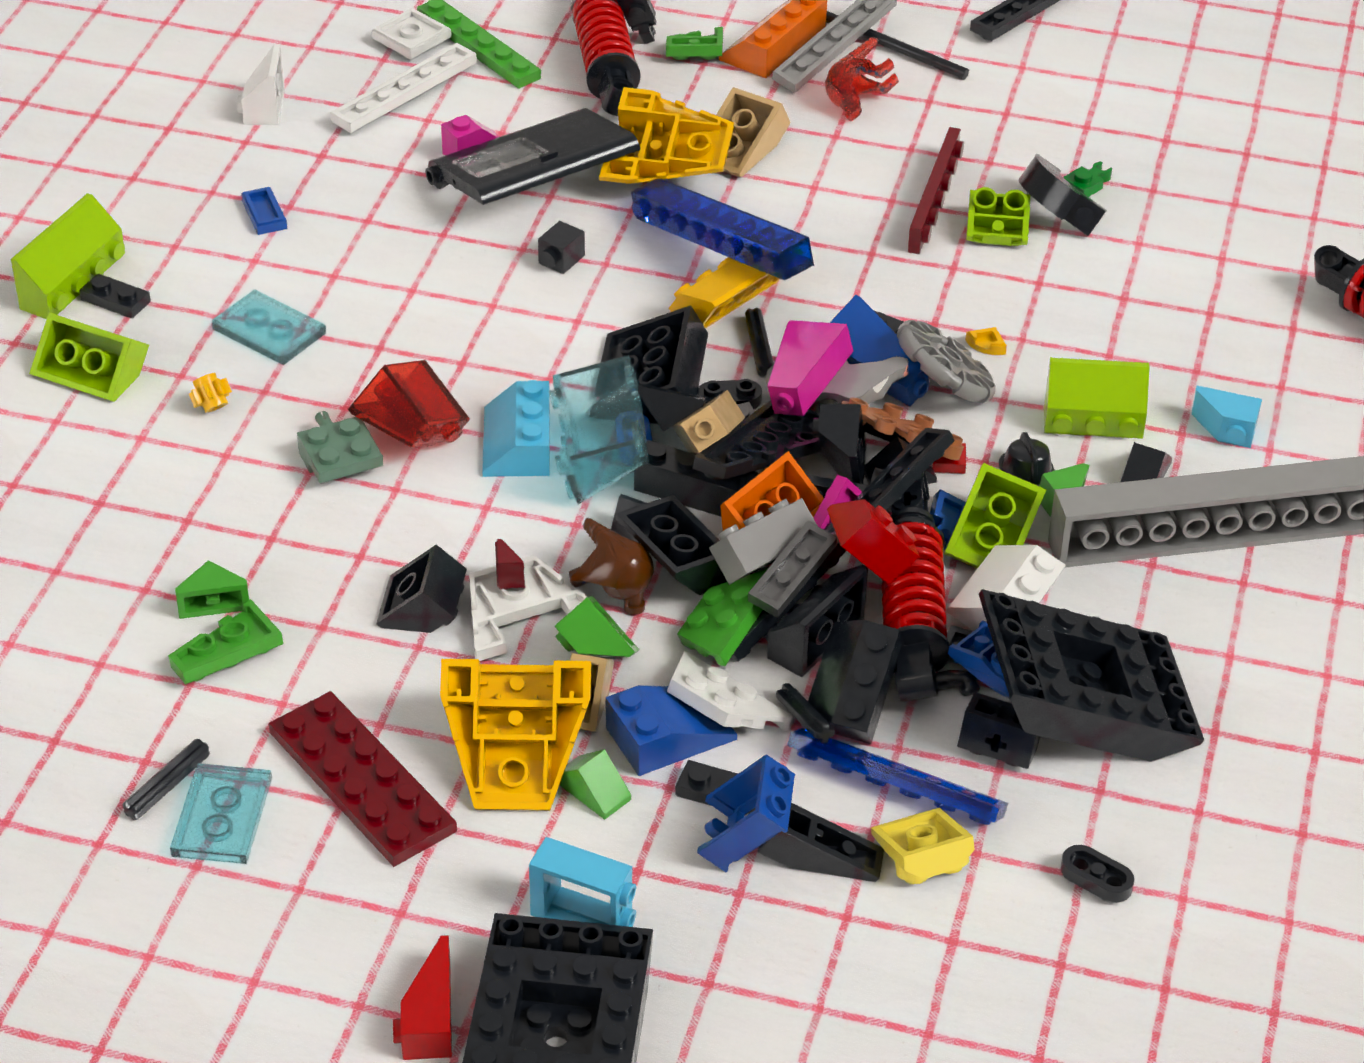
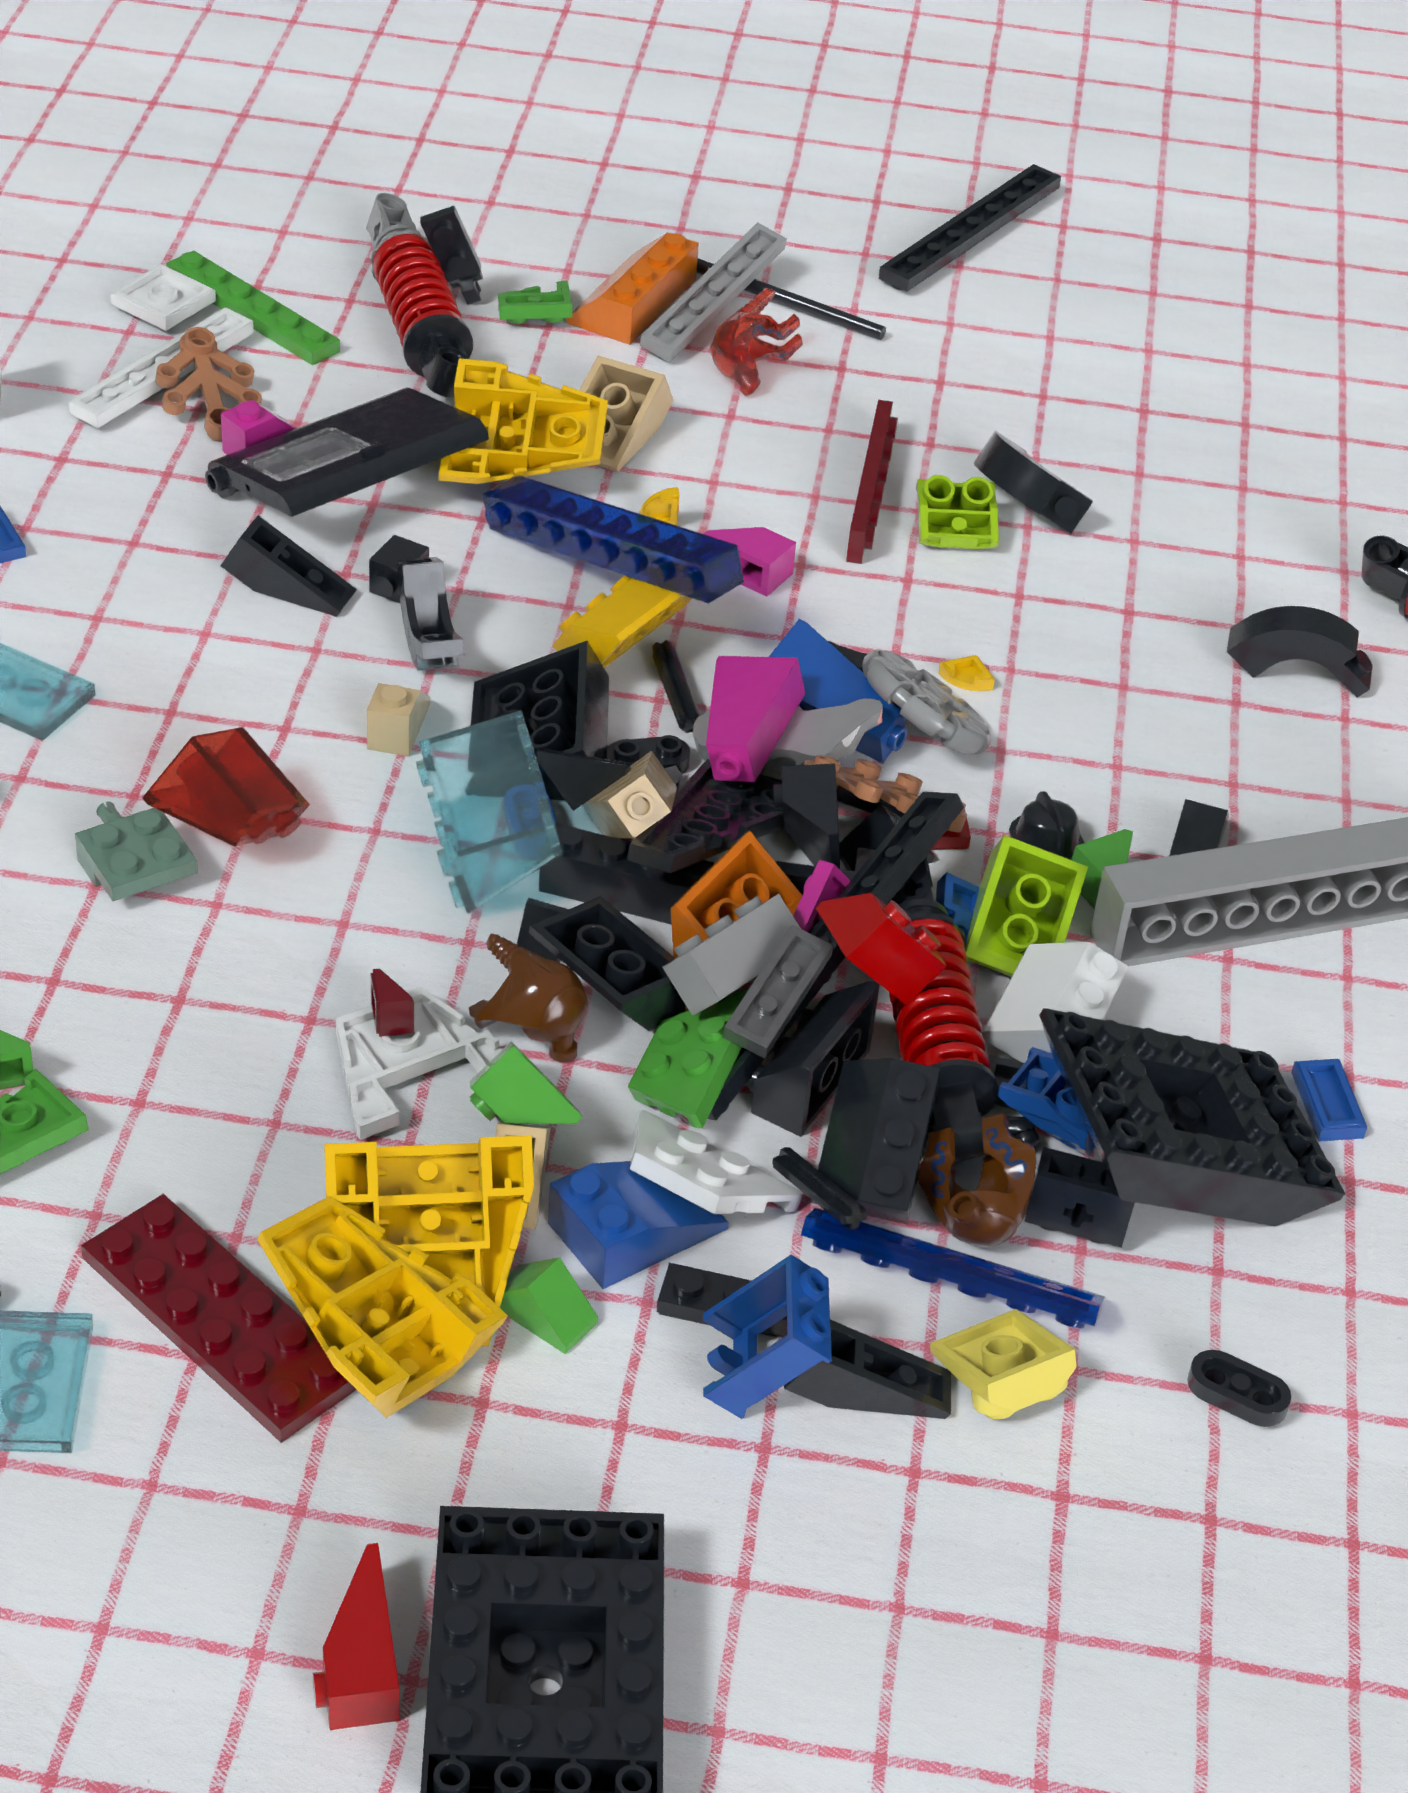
camera: 10 degrees left, 0 degrees up
(423, 593) = (275, 1048): black slope -> none
(433, 74) = (201, 347): none -> nougat plant
(468, 777) = (375, 1307): none -> yellow wedge
(475, 245) = (282, 569): none -> black slope
(518, 431) = (375, 818): medium azure slope -> none
(543, 357) = (395, 718): none -> tan slope
(566, 862) = (558, 1434): medium azure window -> none
(577, 281) = (427, 615): none -> arch
(768, 206) = (663, 506): none -> yellow tile
(835, 246) = (763, 554): none -> dark pink slope
(929, 738) = (1005, 1188): none -> reddish brown piece
(1089, 180) = (1061, 461): green plate -> none
(1096, 398) = (1124, 742): lime slope -> none
(1209, 672) = (1329, 1100): none -> blue tile
(1227, 415) = (1289, 758): medium azure slope -> none
(1256, 321) = (1301, 634): none -> black arch

